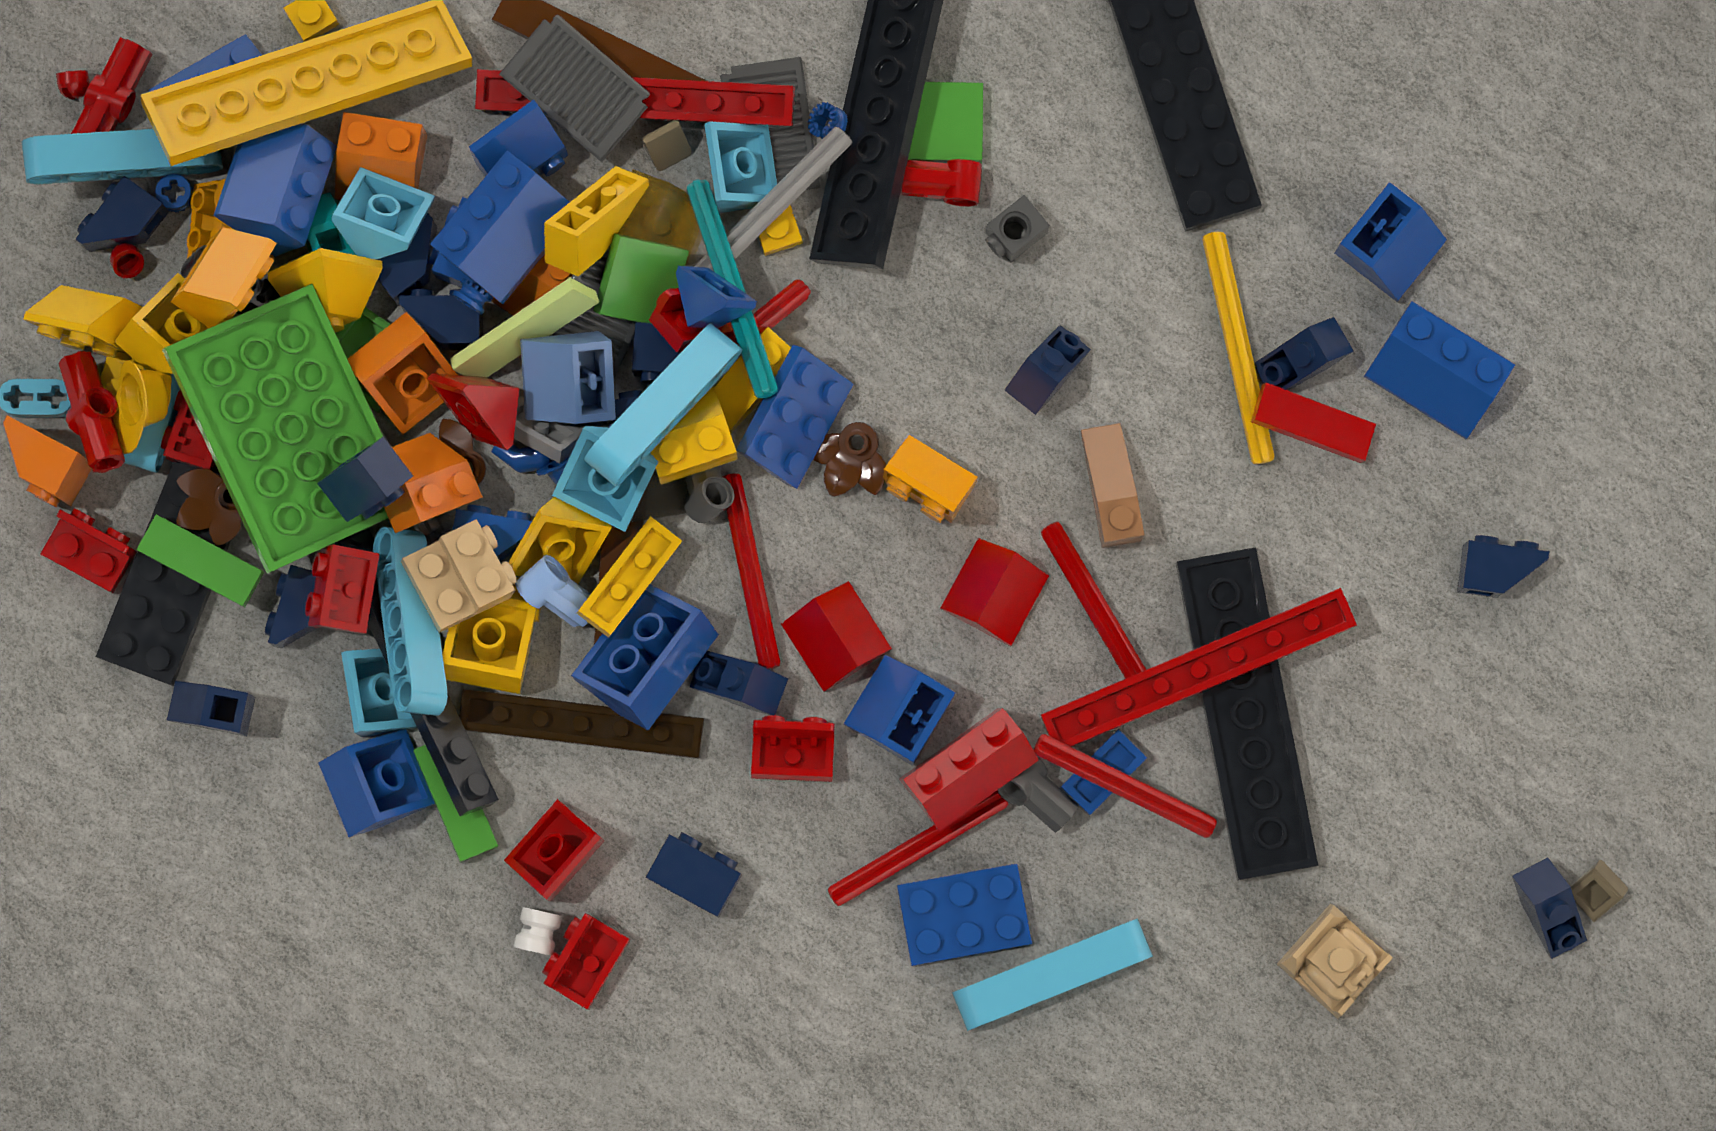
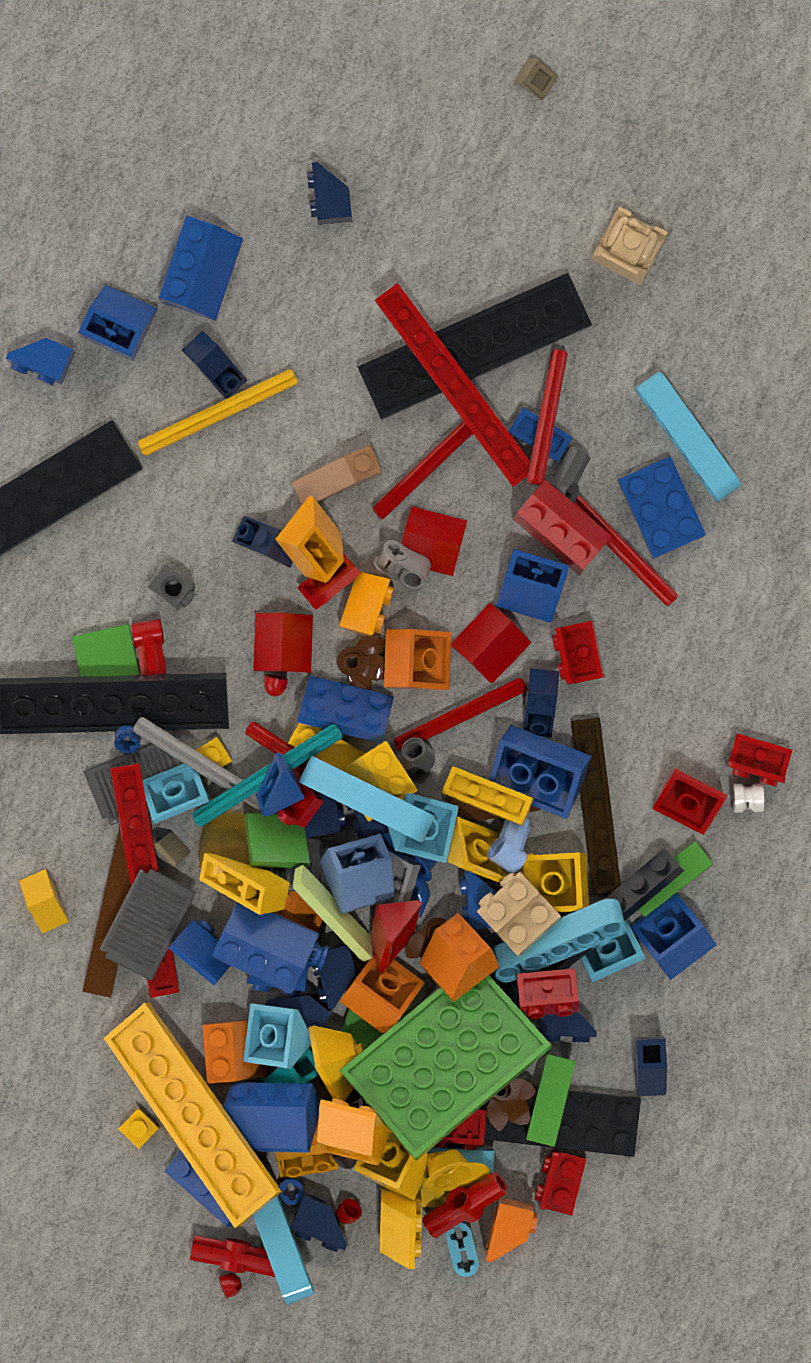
camera: 100 degrees left, 5 degrees up
(366, 481) = (471, 993): dark blue brick -> none
(694, 874) = (681, 699): dark blue brick -> none
(838, 531) = (417, 659): none -> orange slope
(852, 334) = (275, 685): none -> red hinge
(905, 360) = (283, 642): none -> red slope
(968, 544) = (404, 566): none -> light grey piece
(974, 436) = (320, 593): none -> red bracket
(1032, 427) = (313, 541): none -> light orange slope
(1313, 422) = (259, 347): red tile -> none
(1365, 135) = (44, 358): none -> blue slope
(1550, 907) = (557, 107): dark blue slope -> none

